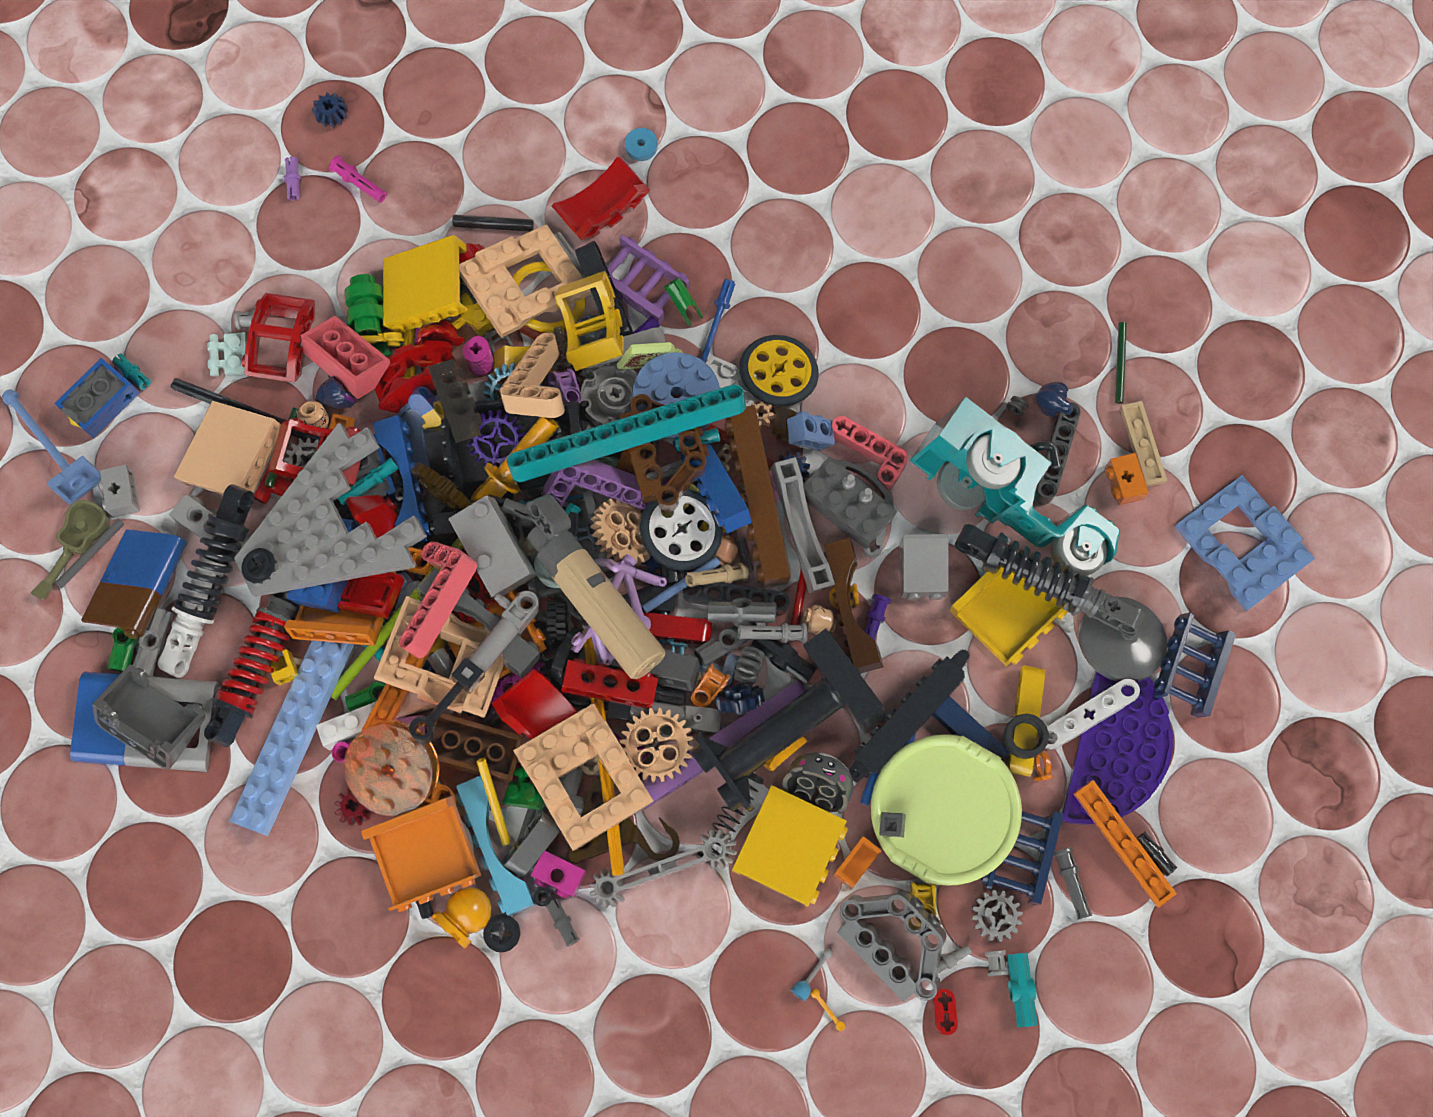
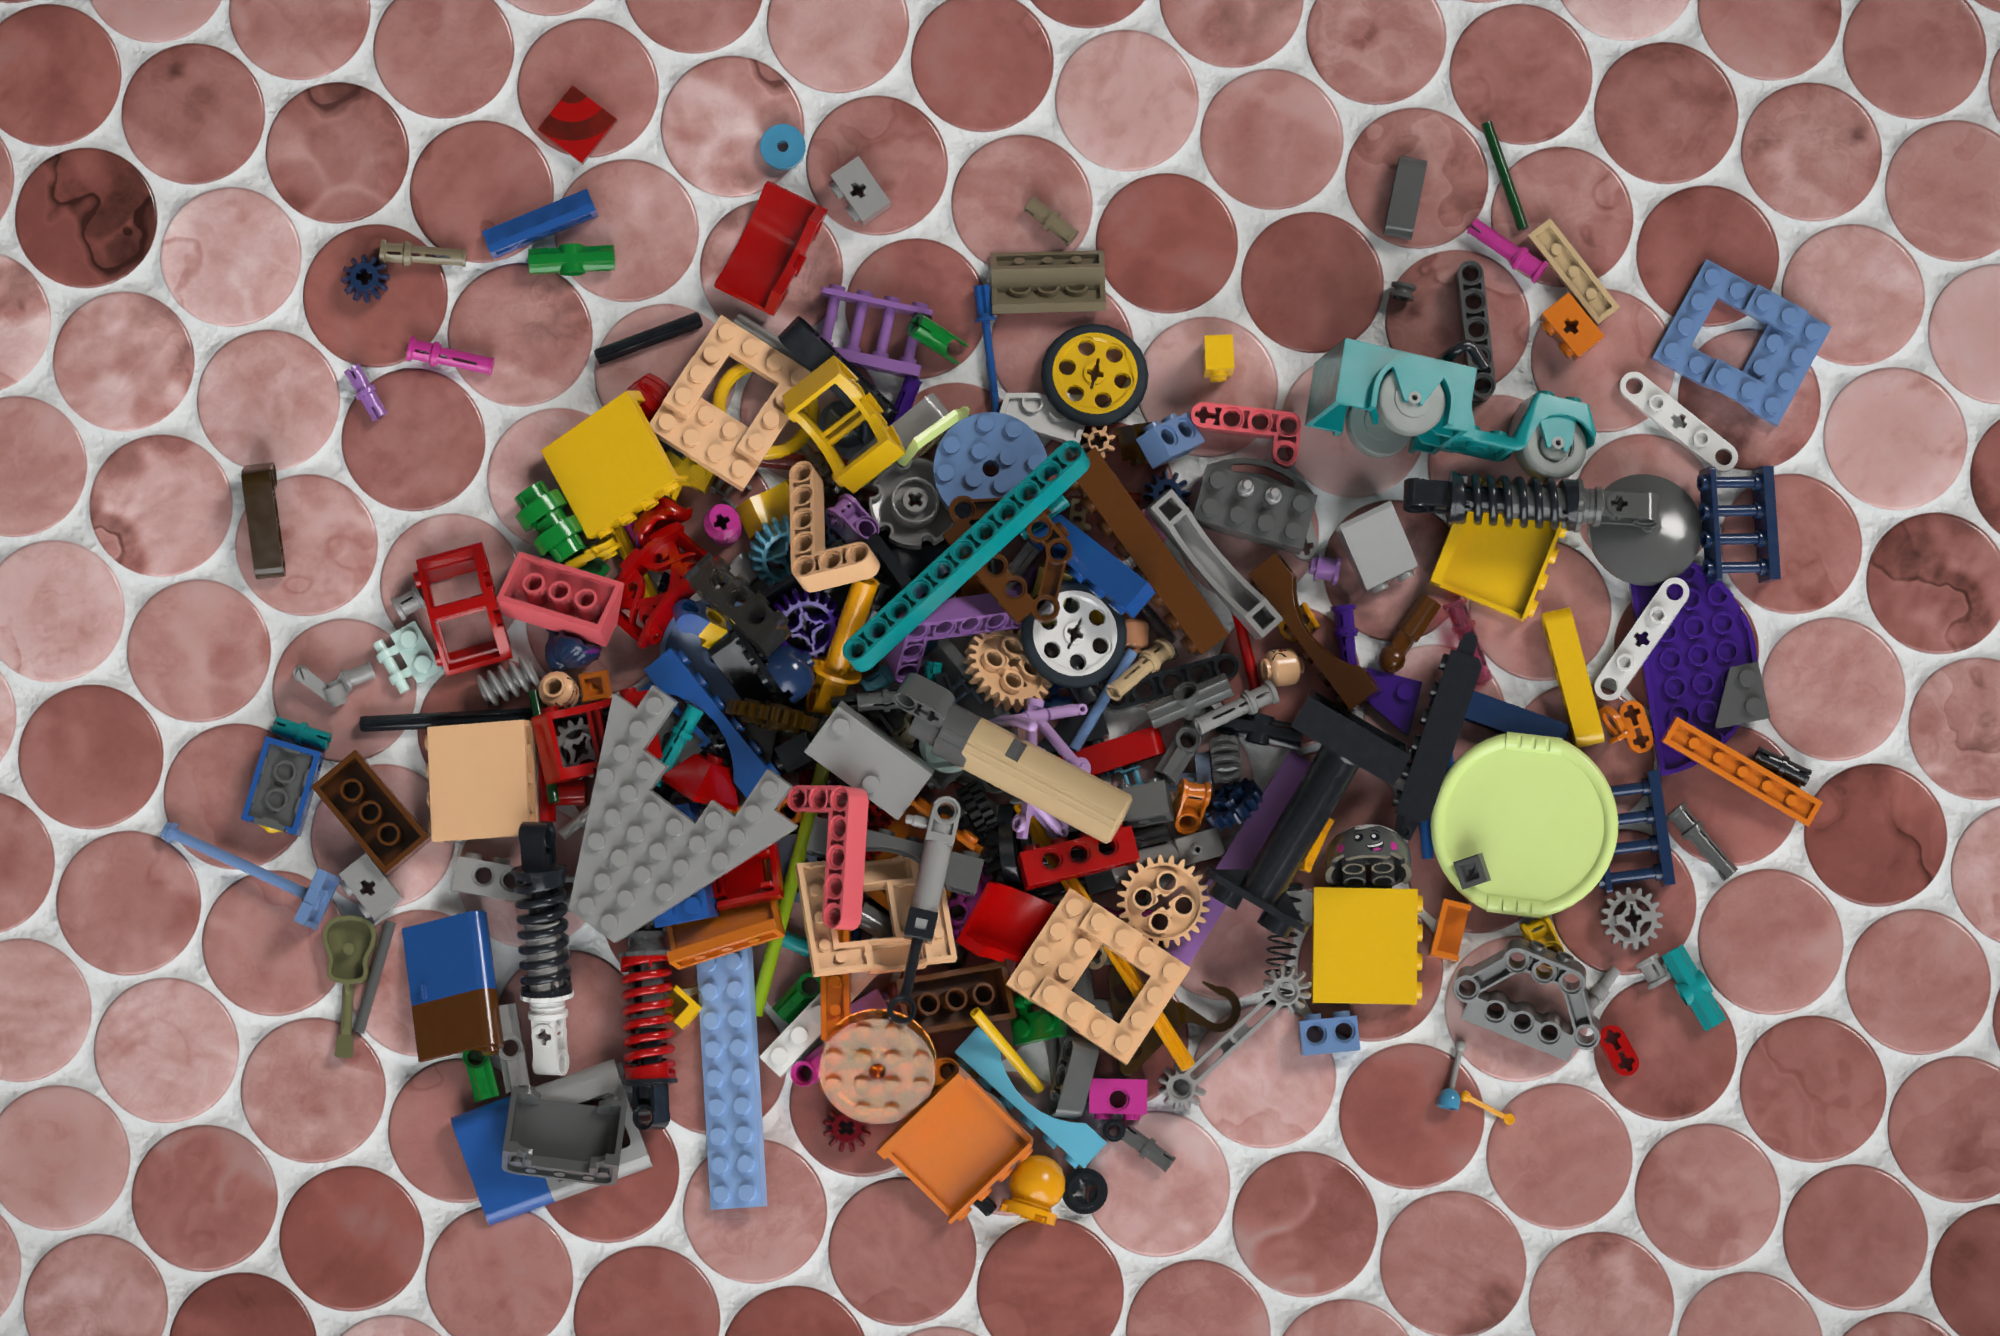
camera: 25 degrees left, 10 degrees up
(145, 441) = (371, 813): none -> reddish brown brick
(170, 354) = (335, 690): none -> light grey pin
(180, 225) = (259, 493): none -> dark brown beam
(250, 569) = (597, 911): black gear -> none
(283, 397) = (508, 681): none -> light grey piece
(365, 107) = (457, 256): none -> dark tan pin
(459, 125) = (540, 224): none -> blue fence
(468, 153) = (571, 259): none -> green piece
(468, 462) = (791, 671): none -> dark blue cylinder
(515, 77) = (577, 125): none -> tile
(681, 200) = (857, 175): none -> light grey brick
(732, 905) = (1329, 1042): none -> medium blue brick
(776, 298) = (1048, 282): none -> dark tan slope
(796, 261) = (1051, 221): none -> dark tan pin
(869, 391) = (1218, 357): none -> yellow brick
(880, 566) = (1325, 568): none -> medium lavender brick
(891, 679) = (1397, 699): none -> dark purple wing
(921, 636) = (1410, 630): none -> reddish brown piece
(962, 641) = (1463, 624): none -> clear pink pin
(1038, 724) = (1595, 684): black tyre -> none
(1045, 346) = (1405, 197): none -> dark grey beam
(1052, 399) = (1442, 267): dark blue hair -> none
(1063, 777) = (1642, 725): none -> orange beam
(1108, 418) = (1519, 257): none -> dark pink pin
(1147, 789) = (1742, 697): none -> dark grey wing
(1168, 562) = (1661, 407): none -> white piece

